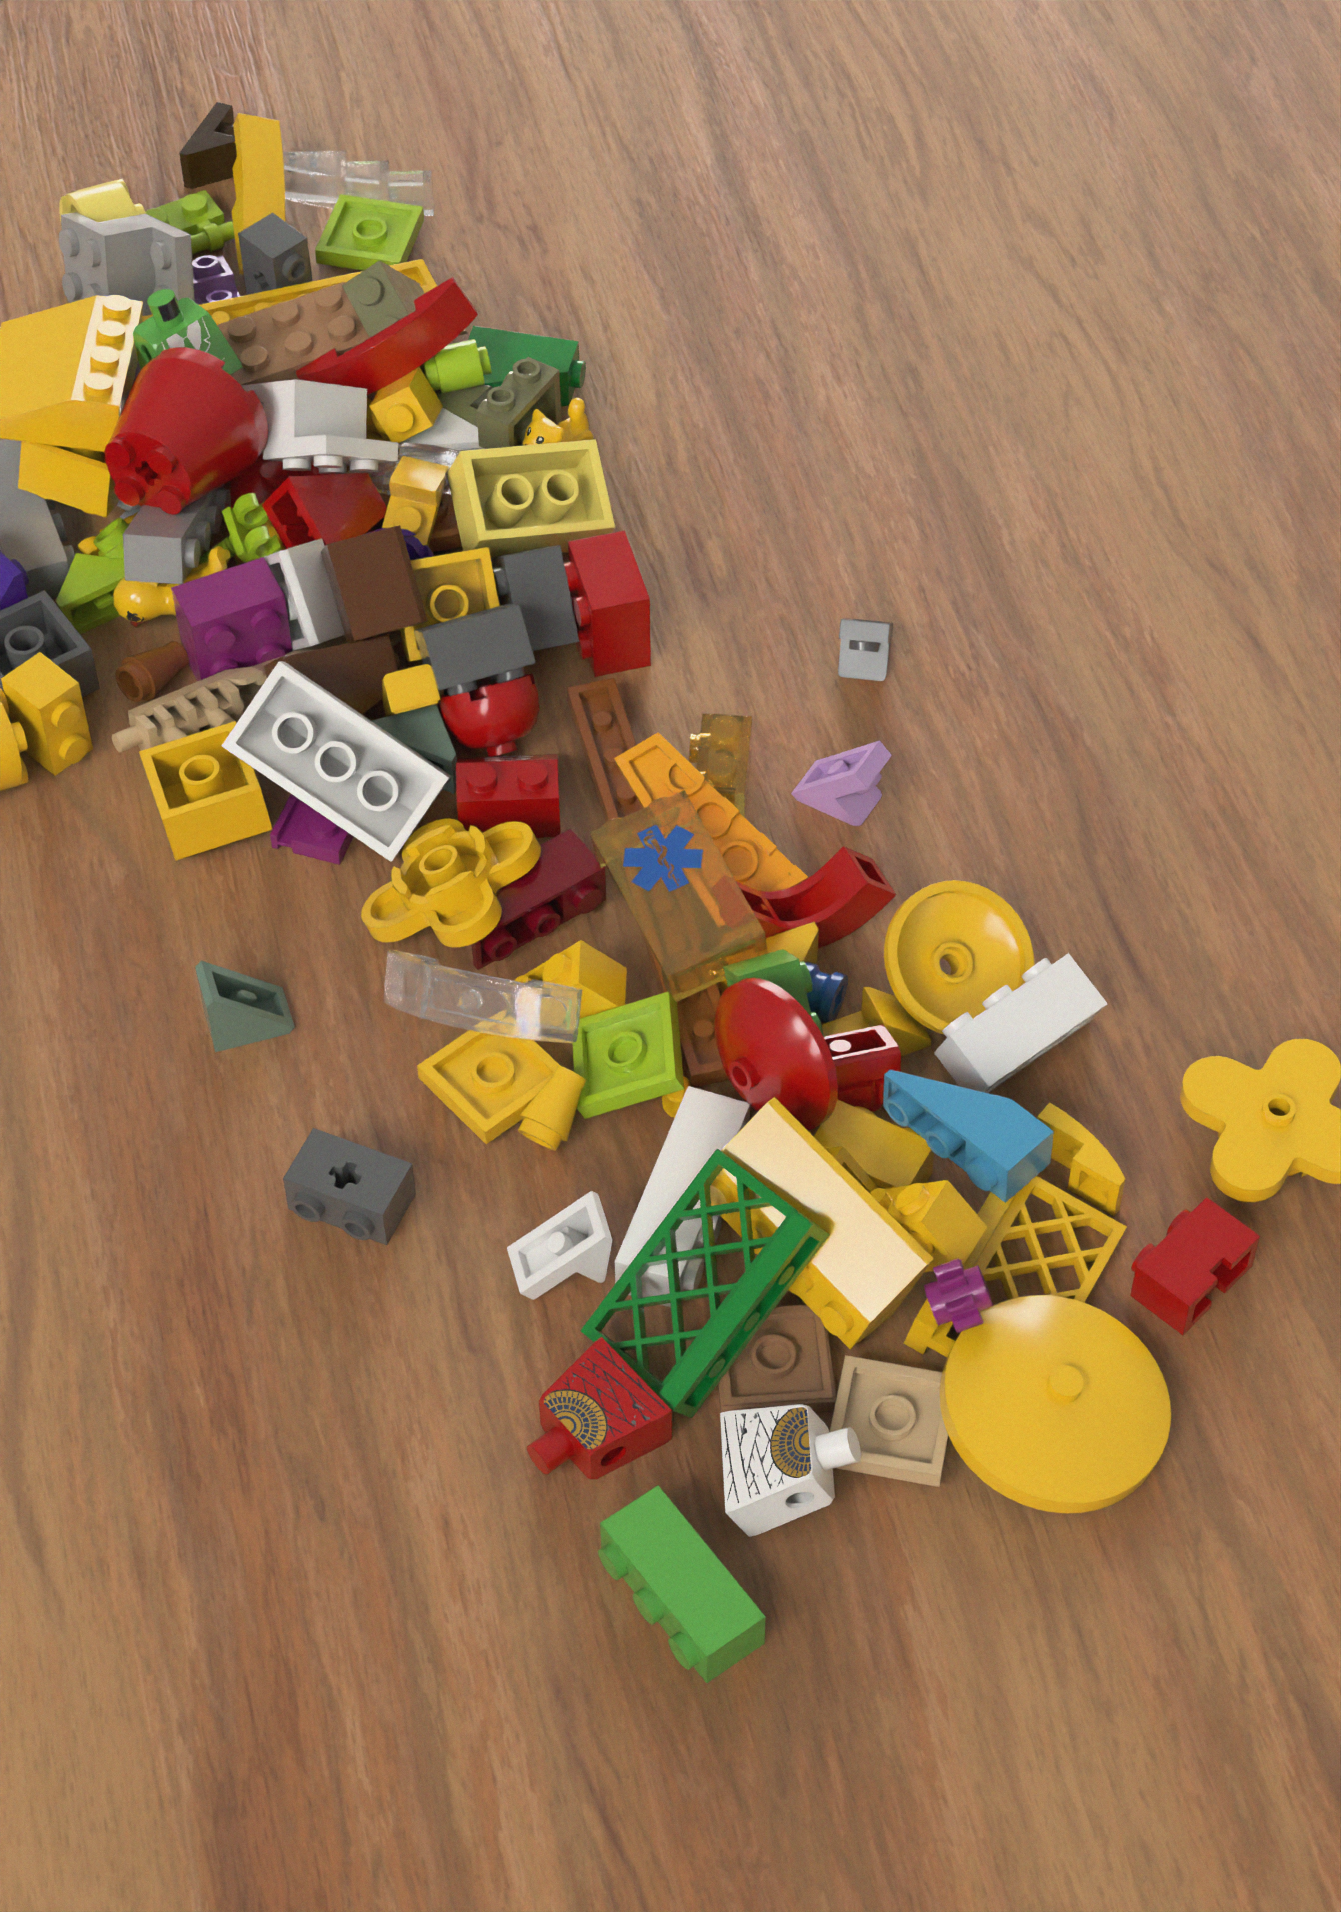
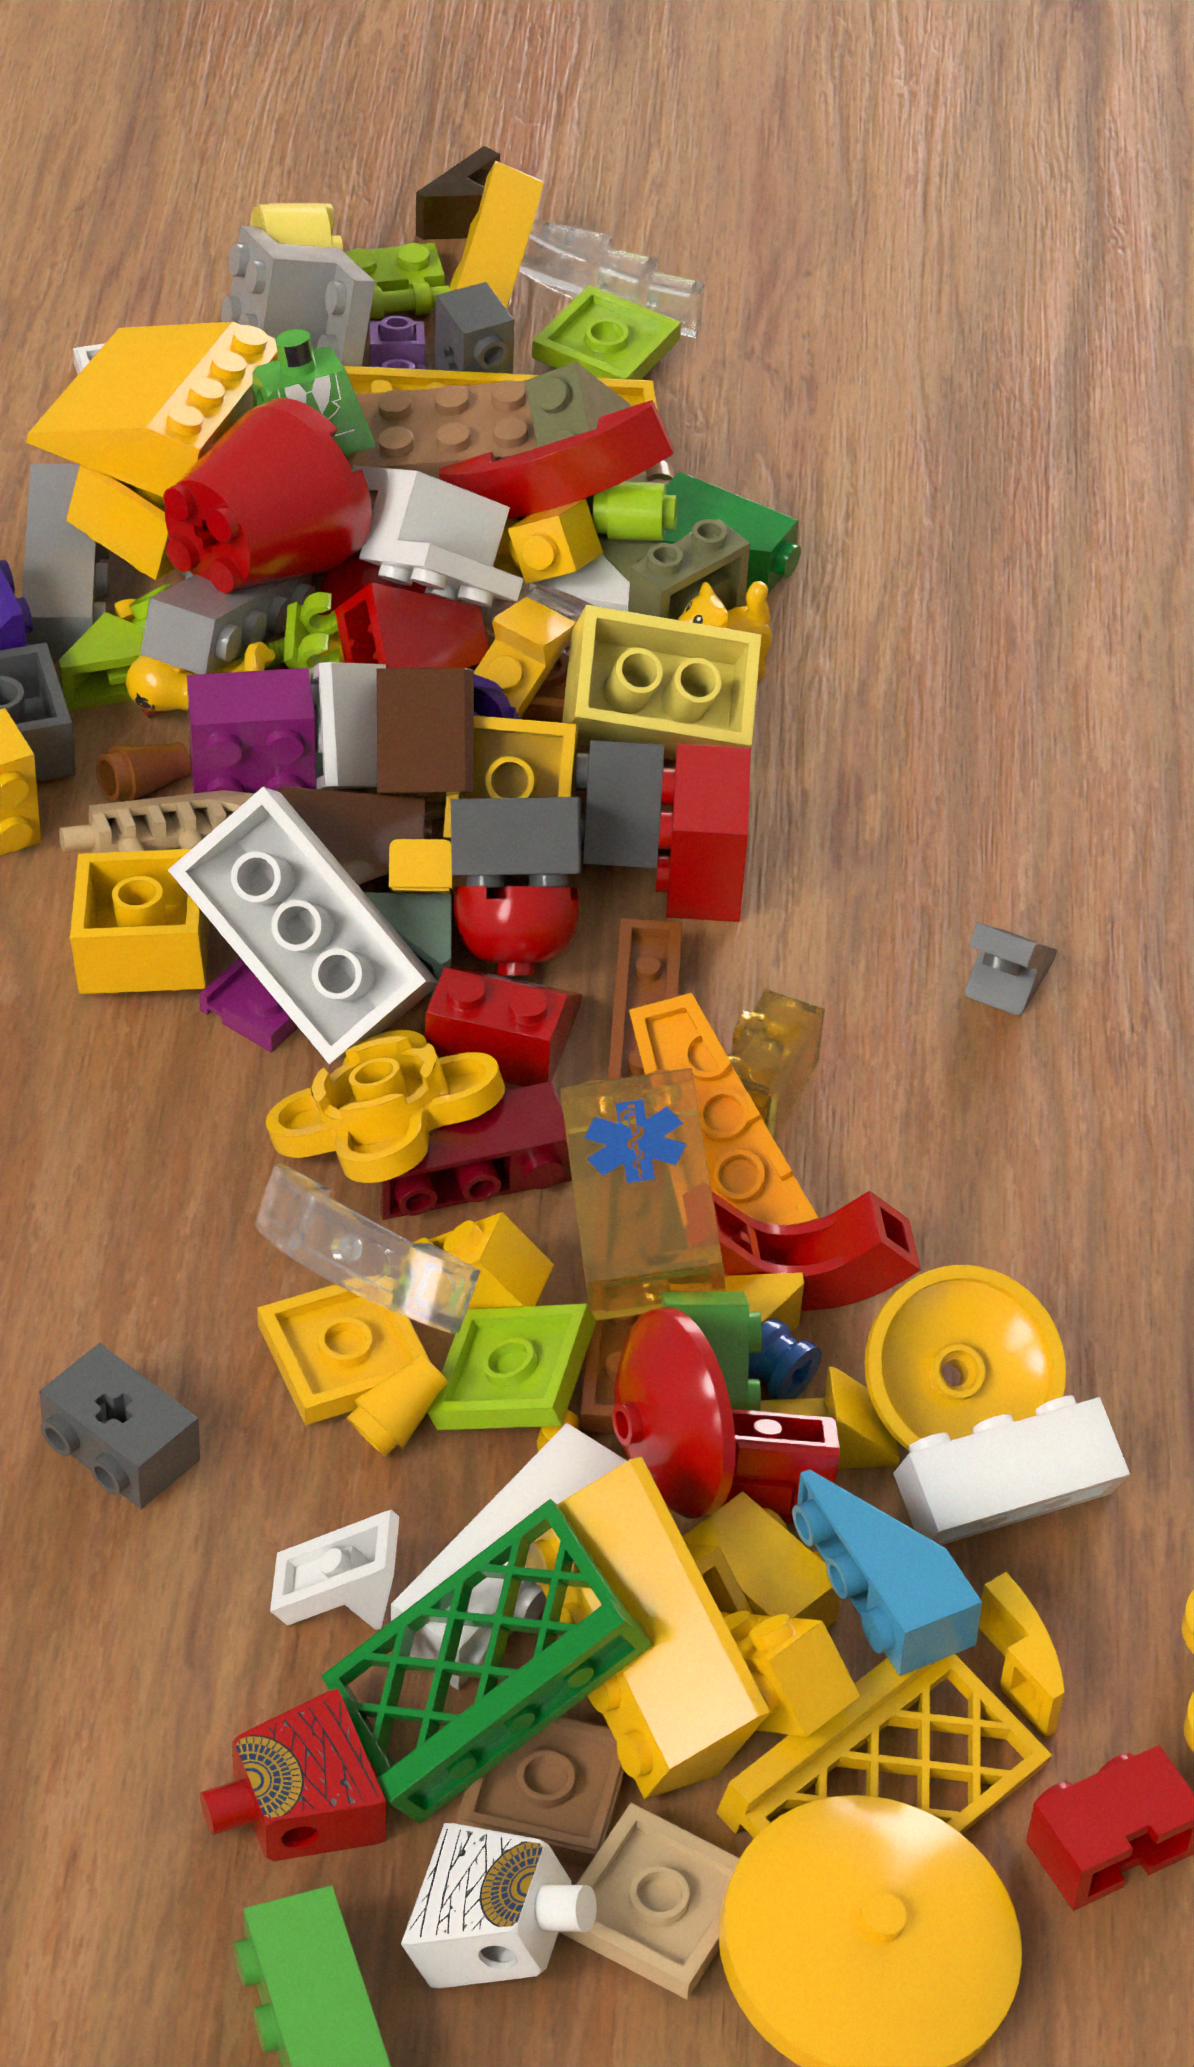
camera: 15 degrees right, 5 degrees down
(241, 1007) = (79, 1181): sand green slope -> none
(845, 783) = (915, 1123): lavender slope -> none
(958, 1295) = (788, 1767): magenta gear -> none

